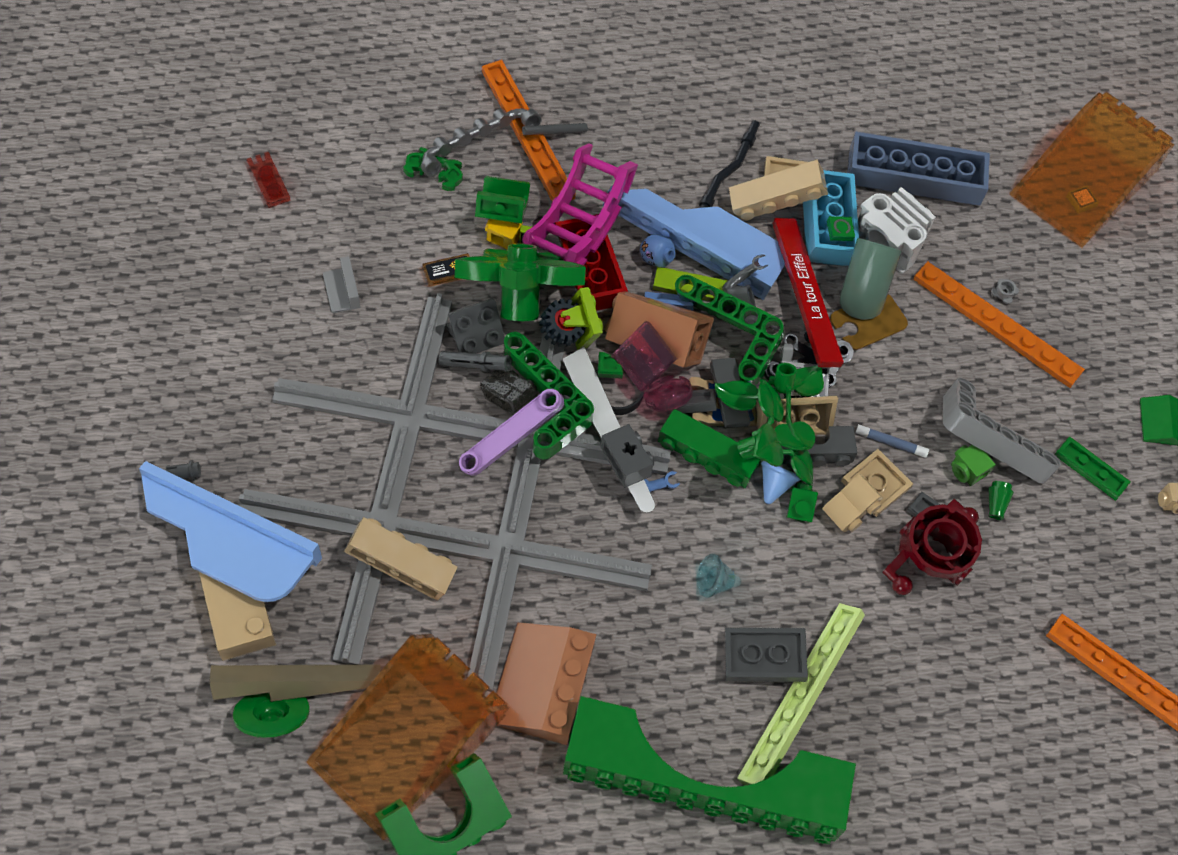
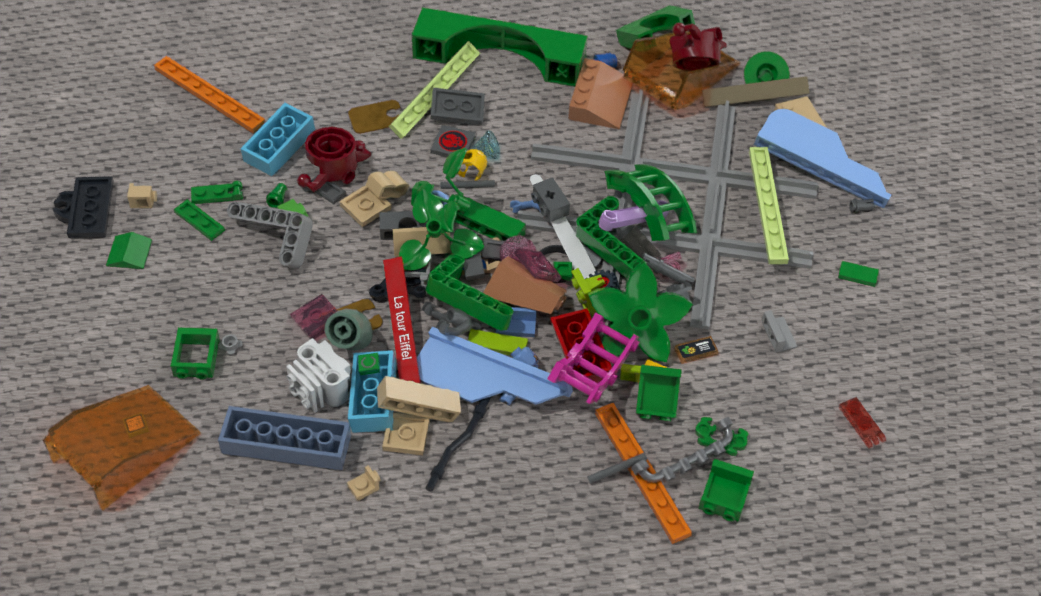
camera: 175 degrees left, 10 degrees down
(218, 368) = (858, 273): none -> green tile
(322, 451) = (768, 206): none -> yellowish green plate
(387, 729) = (697, 49): none -> dark red piece
(401, 558) = (701, 144): tan brick -> none
(439, 106) = (726, 490): none -> green panel
(468, 386) = (672, 260): none -> clear pink tile
(499, 443) = (633, 184): none -> green fence
(534, 754) = (607, 58): none -> blue brick
(728, 544) = (475, 158): none -> yellow helmet
(740, 521) = (468, 184): none -> dark grey bar
(766, 595) = (450, 140): none -> tile
(824, 130) = (364, 484): none -> tan bracket
(892, 441) = (348, 235): sand blue bar -> none
(892, 648) = (372, 116): none -> pearl gold piece
(910, 321) = (313, 316): none -> clear pink tile
(999, 324) = (242, 318): orange plate -> none
(1020, 589) = (278, 139): none -> medium azure brick
(1042, 294) = (195, 336): none -> green window
(1081, 509) = (217, 193): none -> green plate

